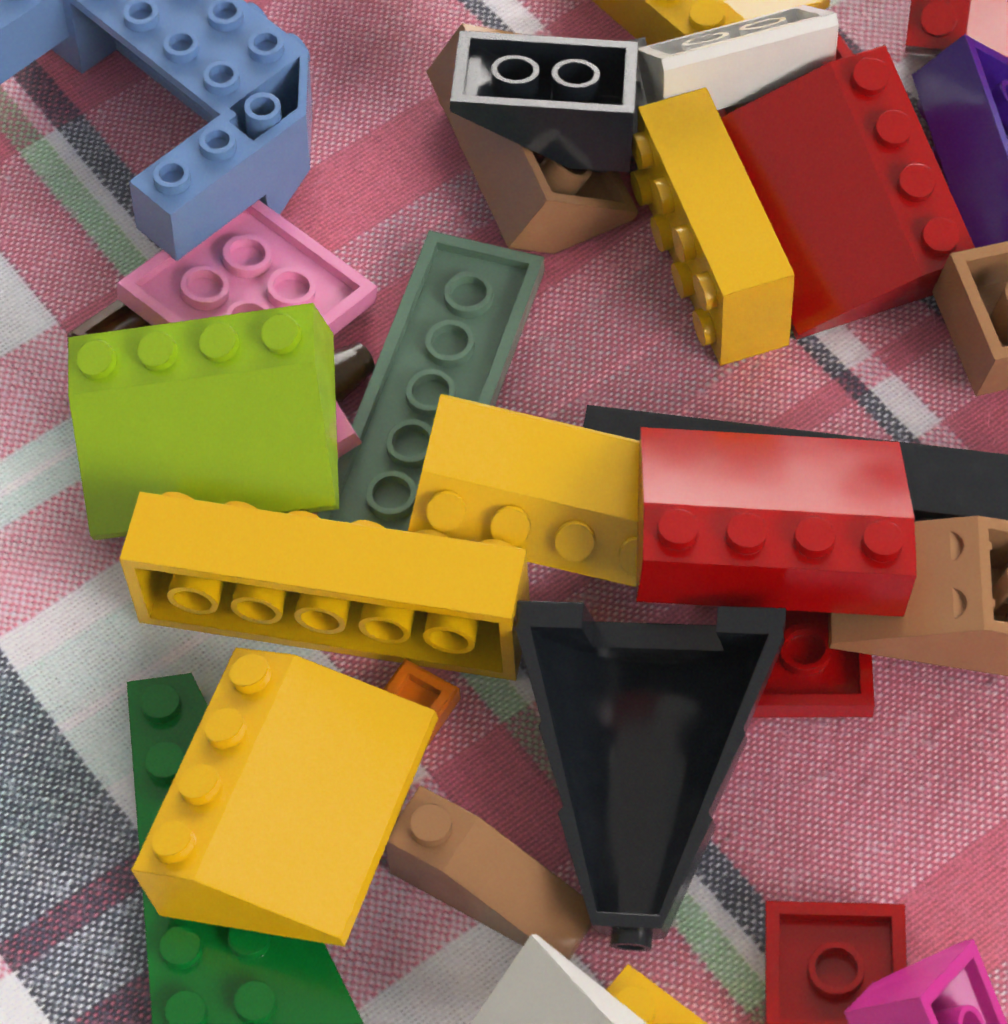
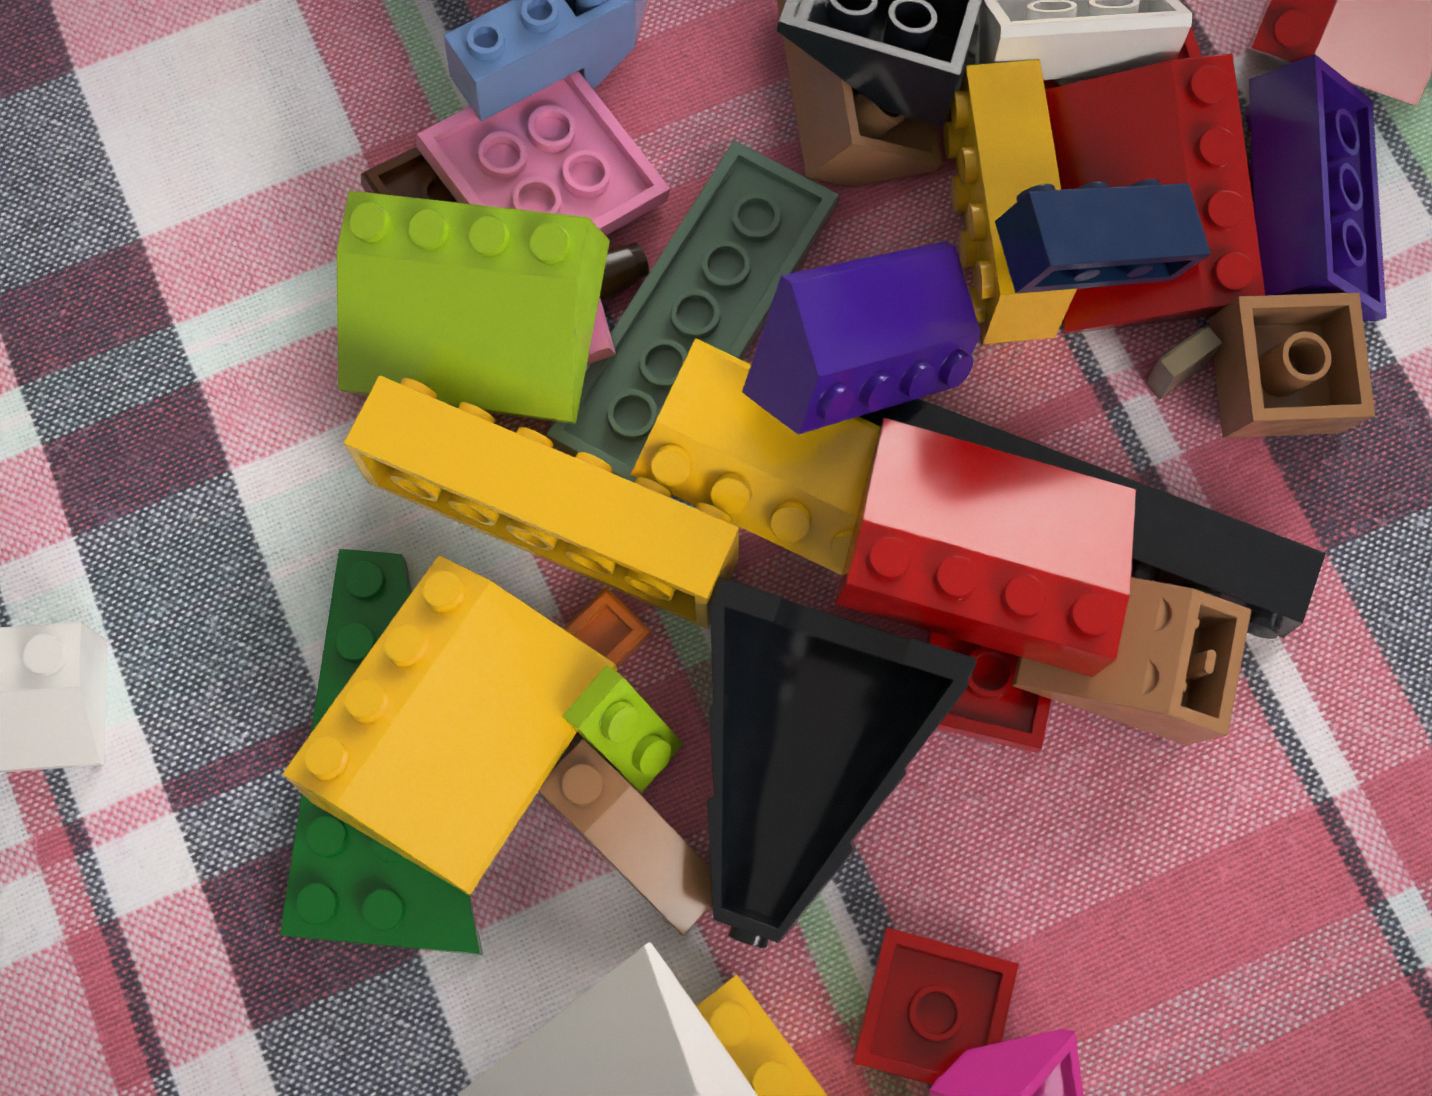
camera: 10 degrees right, 15 degrees up
(456, 766) = (623, 729): none -> lime plate
(604, 356) = (864, 337): none -> dark purple slope
(804, 221) = (1101, 235): none -> dark blue brick
(918, 334) = (1183, 361): none -> dark tan tile

